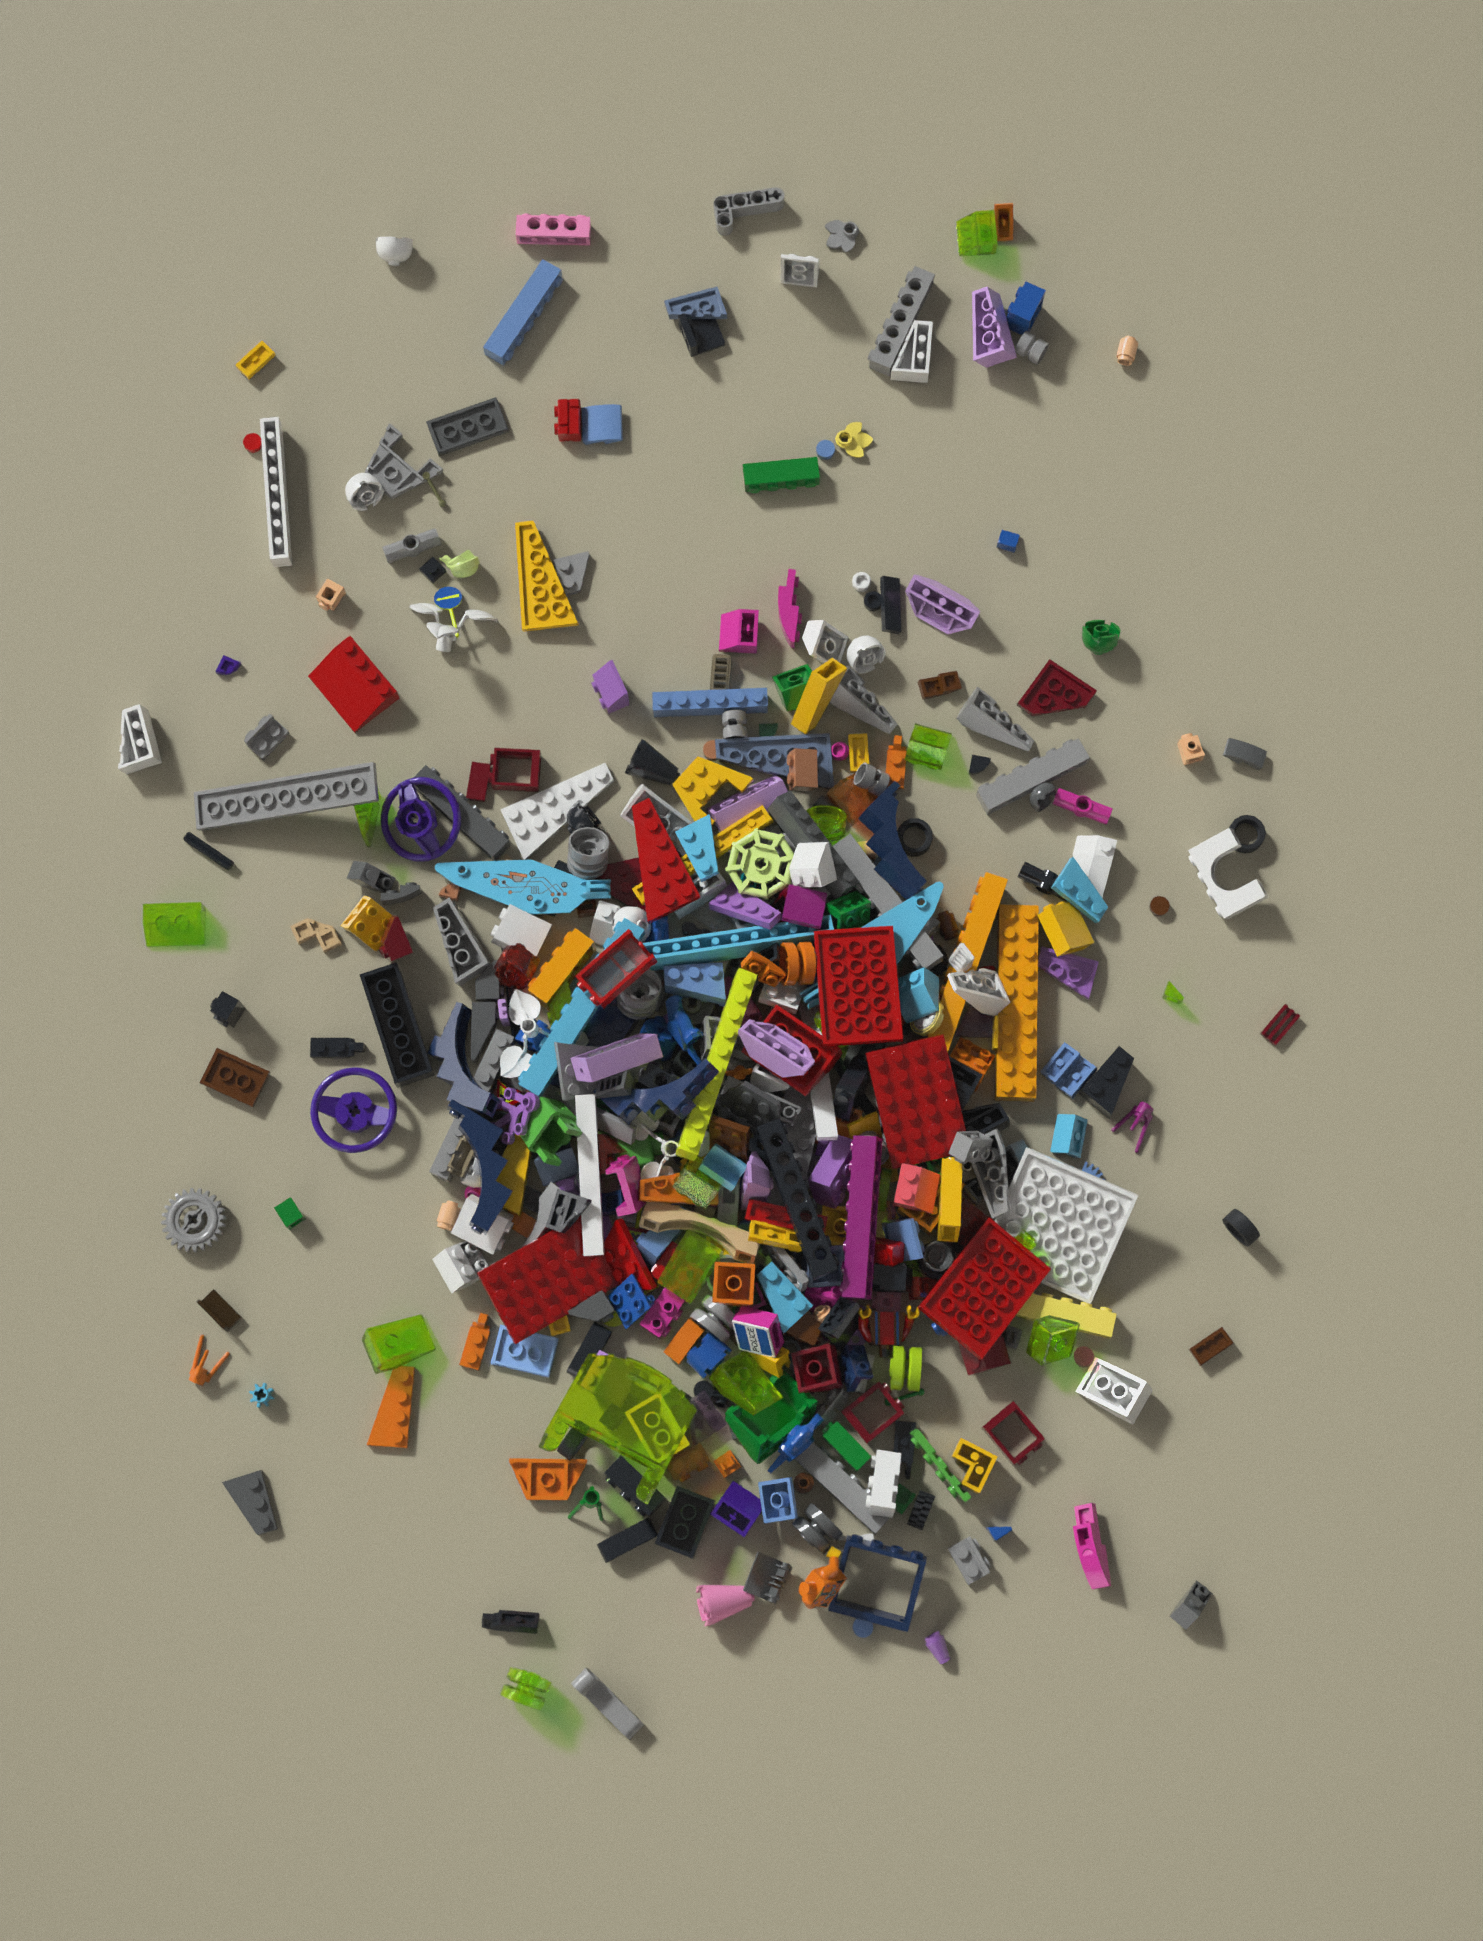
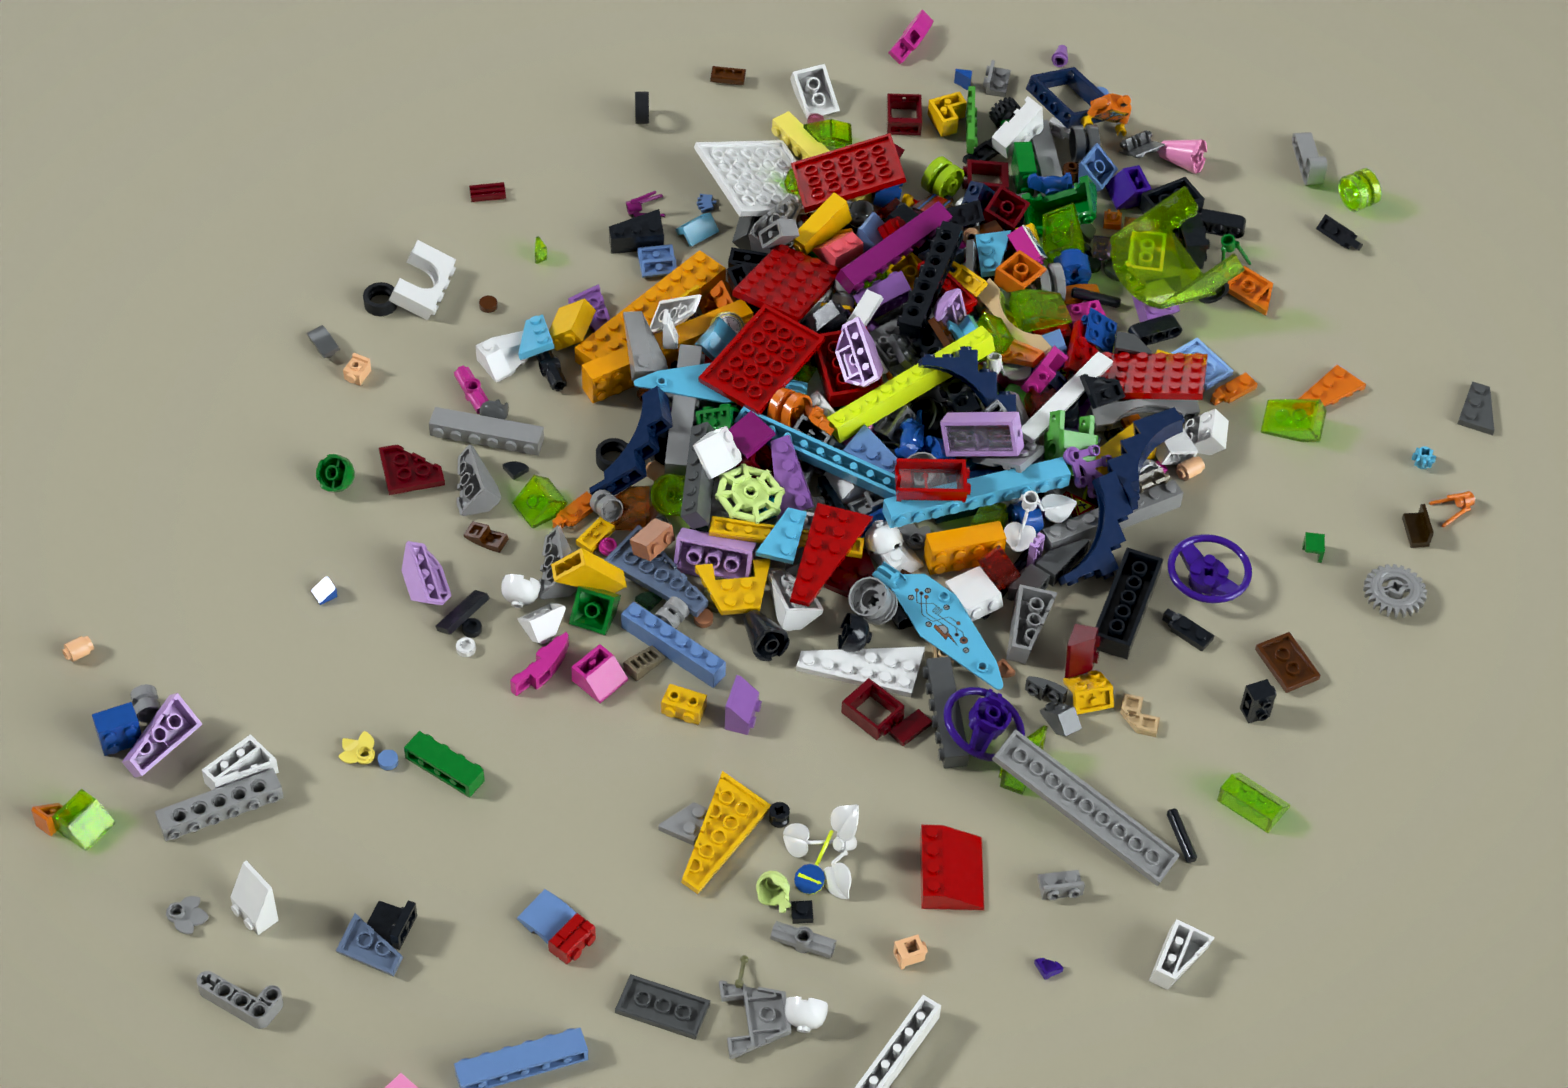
camera: 145 degrees left, 25 degrees down
(513, 632) = (782, 819): none -> black wheel
(657, 660) = (684, 704): none -> yellow brick
(671, 1337) = (1091, 296): none -> black axle
(960, 924) = (643, 348): none -> light grey wedge

